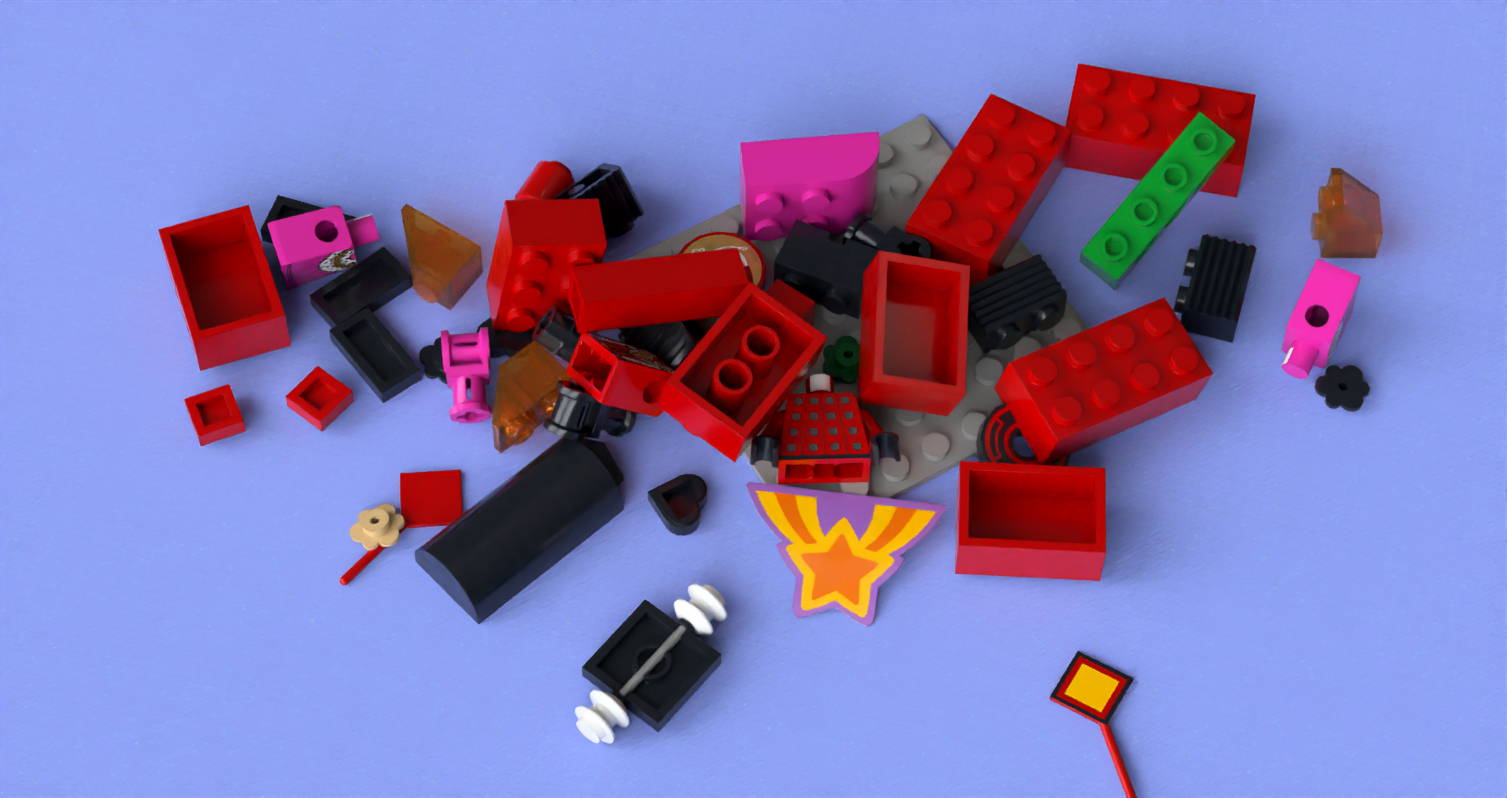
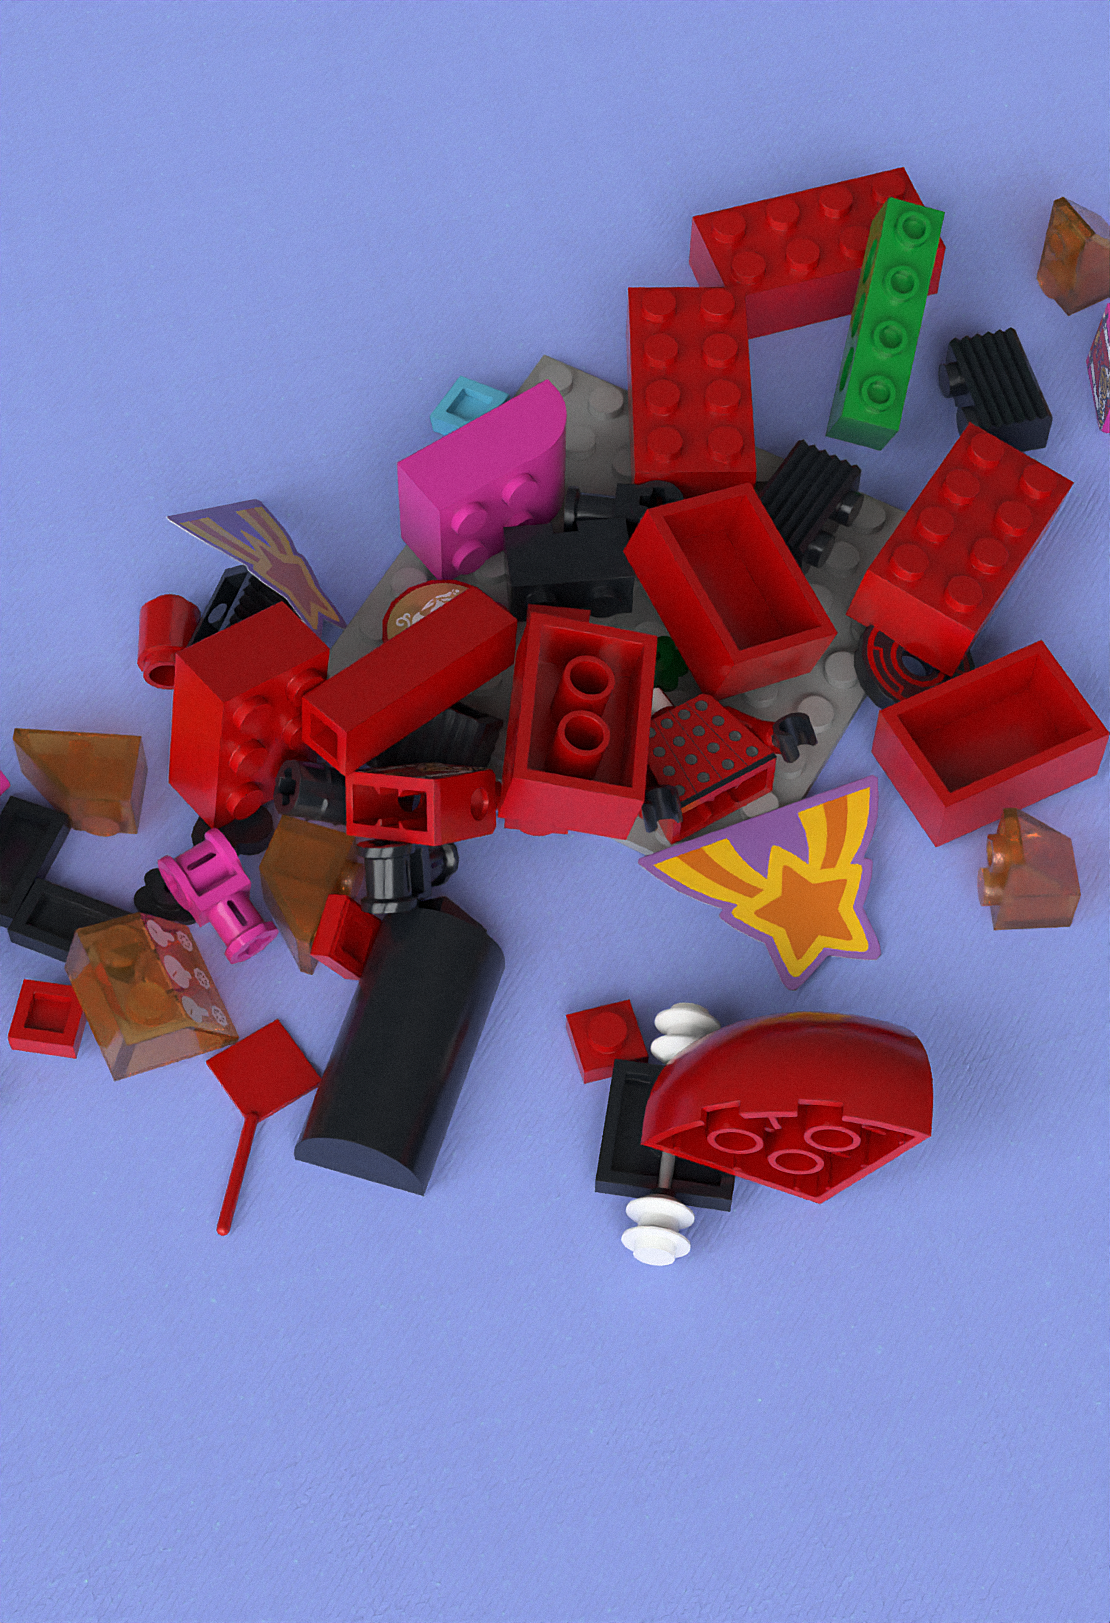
camera: 30 degrees left, 0 degrees up
(377, 527) = (223, 1141): tan plant -> none
(385, 411) = (146, 993): none -> clear orange slope
(526, 436) = (344, 936): none -> red tile
(635, 164) = (262, 544): none -> sticker
(655, 583) = (602, 1036): none -> red plate
(680, 503) = (569, 925): black tile -> none
(722, 675) = (795, 1100): none -> red brick
(841, 121) = (464, 404): none -> medium azure plate
(994, 618) = (1028, 875): none -> slope

